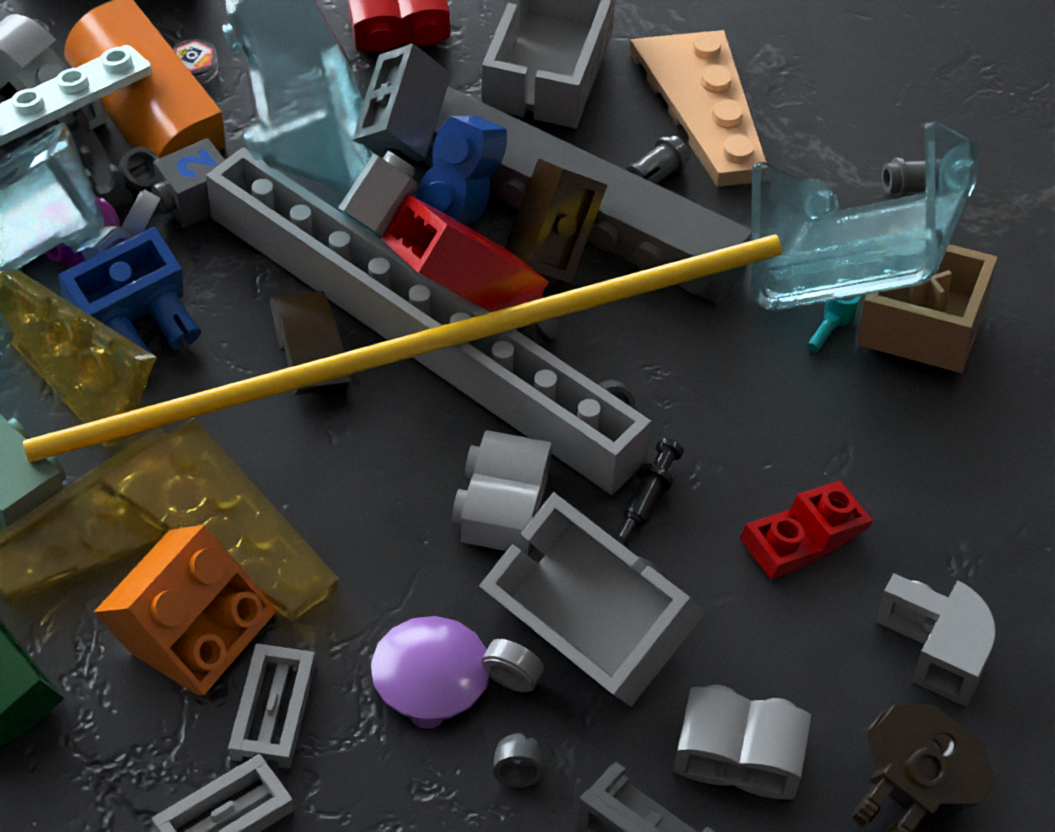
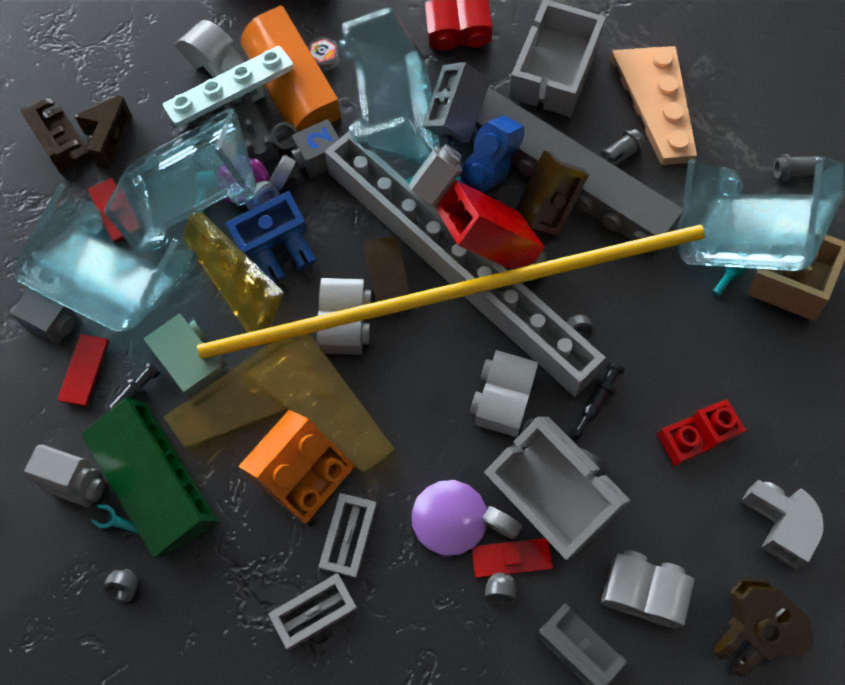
camera: 10 degrees right, 15 degrees up
(255, 427) = (340, 295): none -> light grey brick
(539, 717) = (512, 558): none -> red piece

